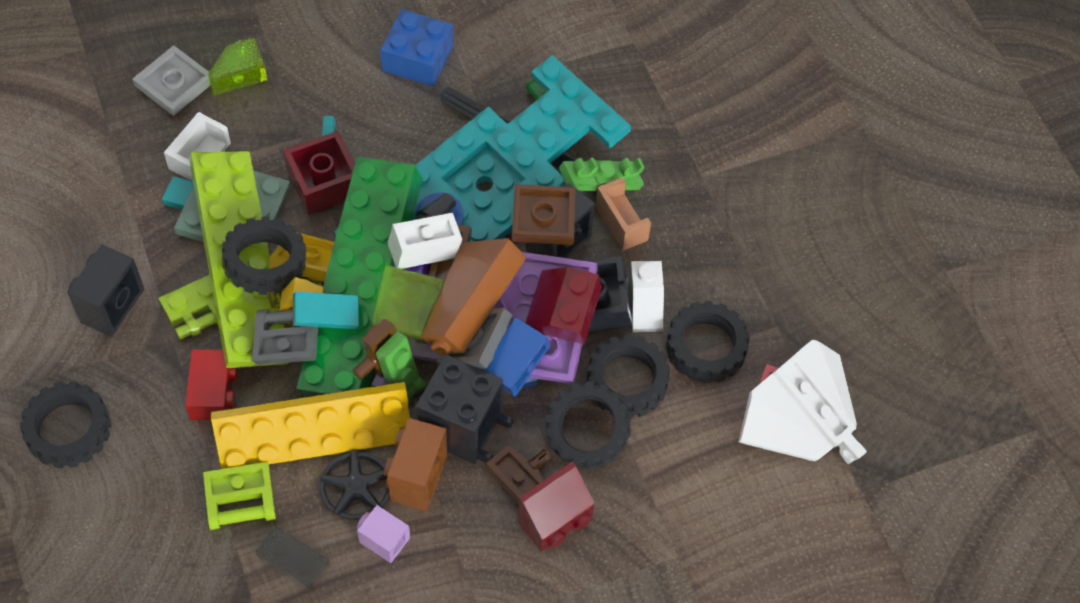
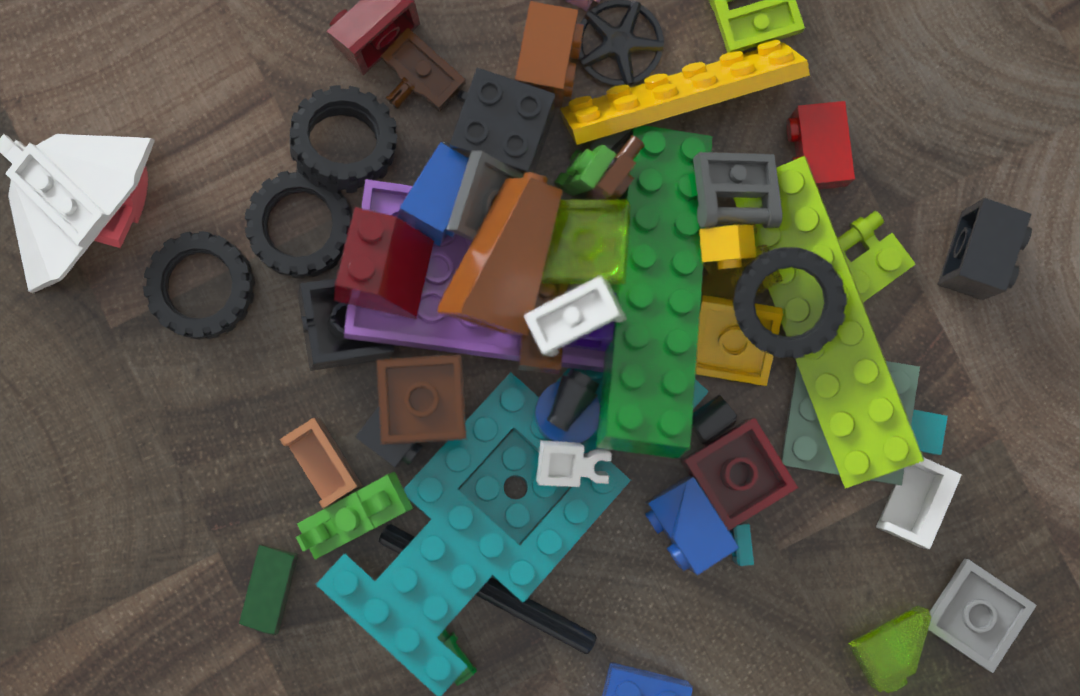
camera: 175 degrees right, 25 degrees up
(56, 397) = (1017, 53): black tyre -> none
(325, 310) = (691, 209): teal tile -> none
(330, 211) = (712, 419): none -> black brick
(360, 131) = (691, 525): none -> blue slope
(445, 179) = (566, 463): none -> white plate
(646, 296) = (281, 340): white slope -> none
(666, 147) = (268, 589): none -> dark green slope

